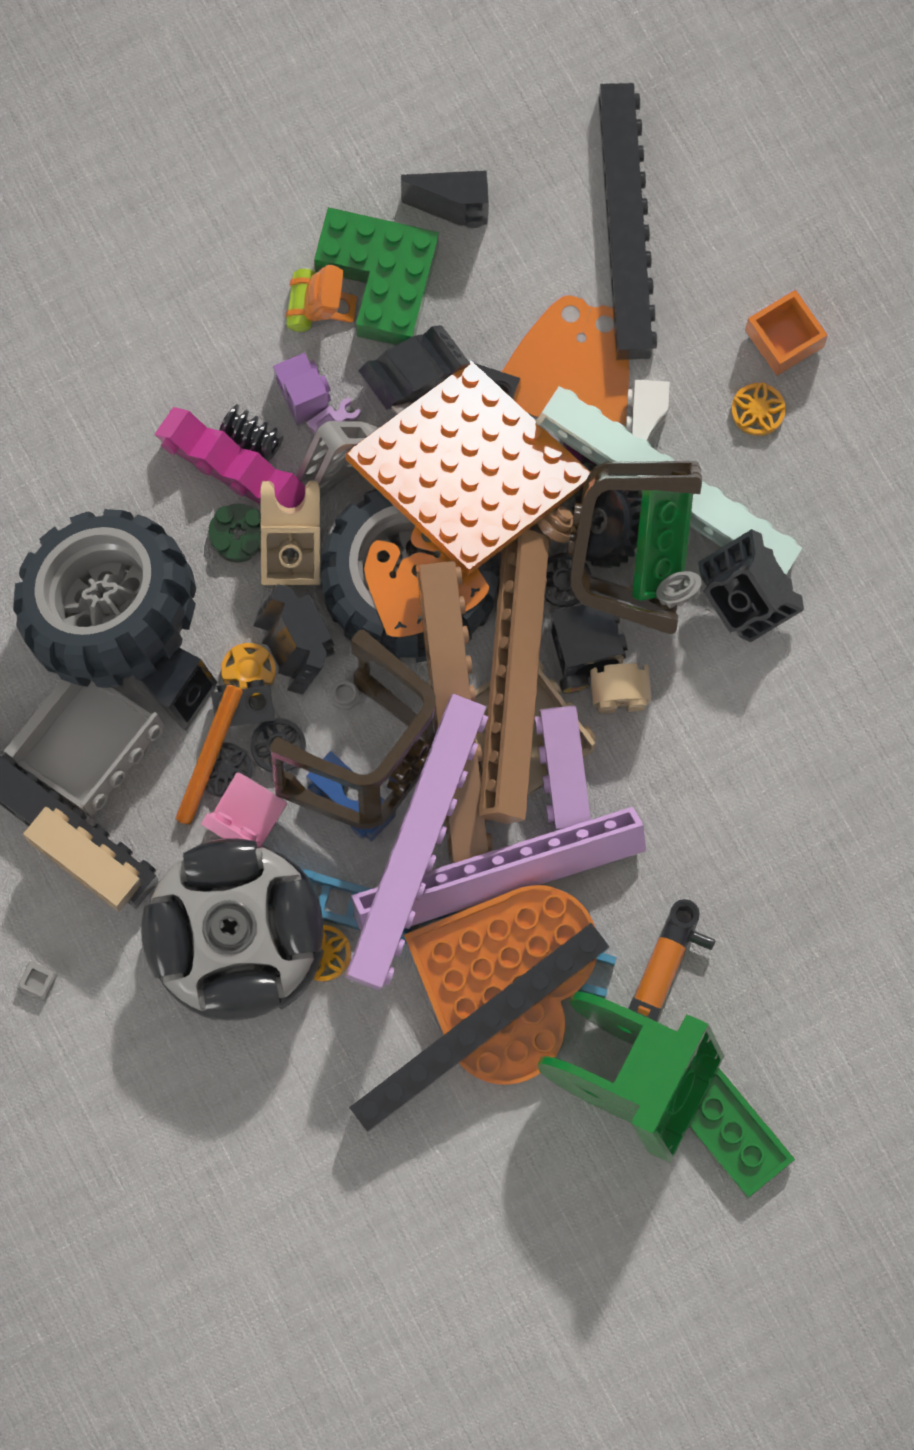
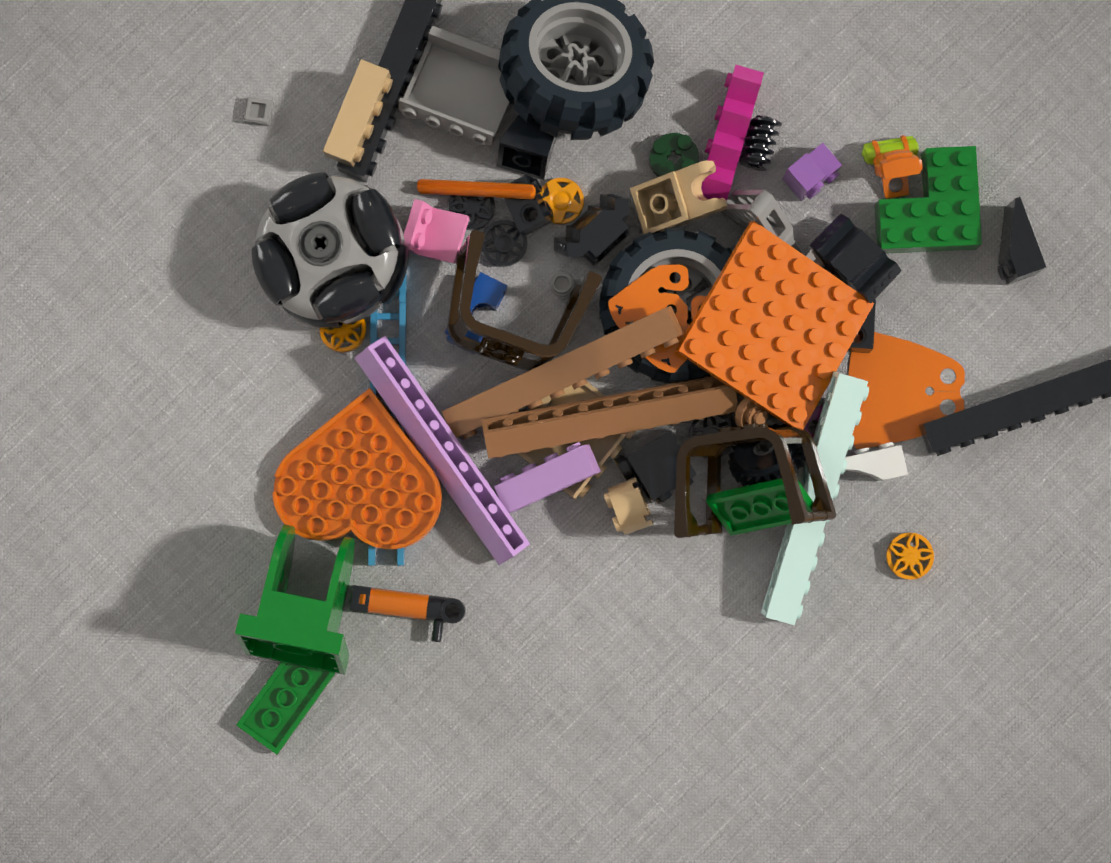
camera: 75 degrees right, 10 degrees up
(330, 415) = (791, 206): lavender plate -> none
(416, 842) = (437, 373): lavender brick -> none
(479, 1027) = (309, 471): black brick -> none
(671, 591) = (731, 529): light grey gear -> none
(749, 587) = (745, 589): black slope -> none
(786, 332) = (982, 561): orange piece -> none

